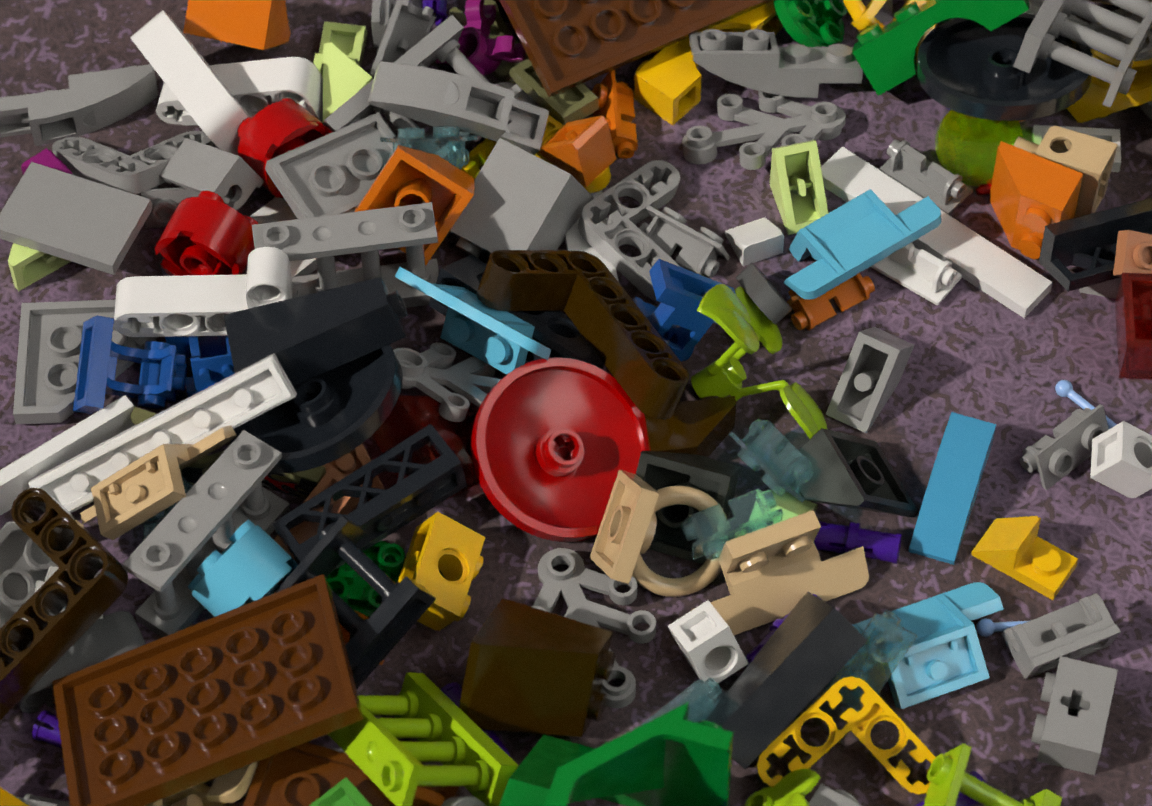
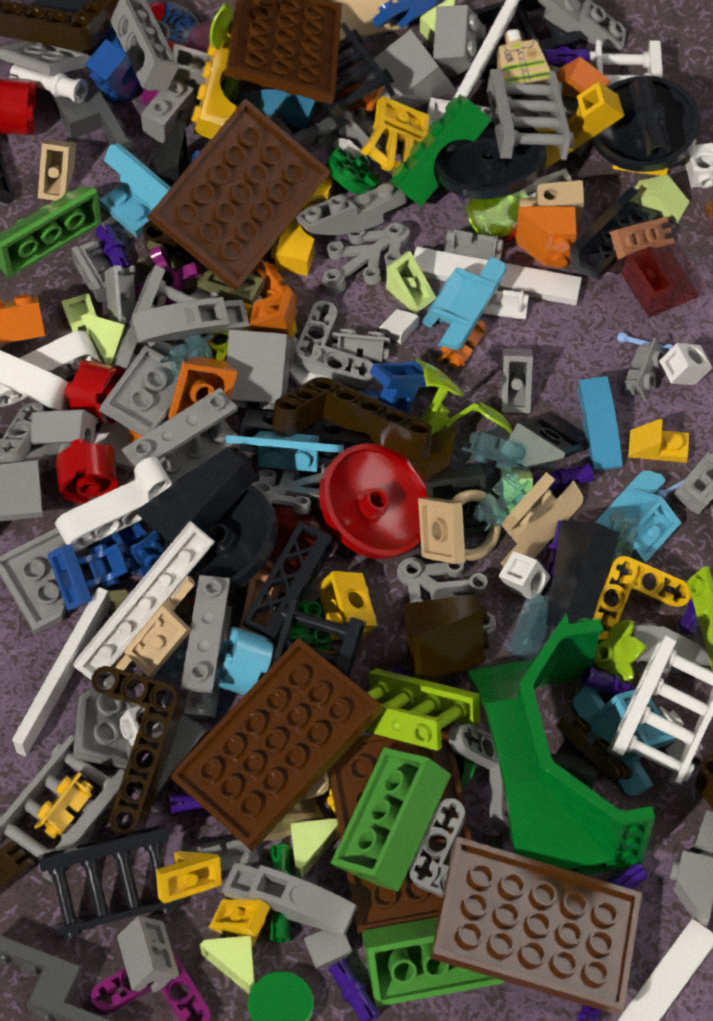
camera: 30 degrees left, 5 degrees up
(763, 293) = (429, 356): dark grey beam -> none

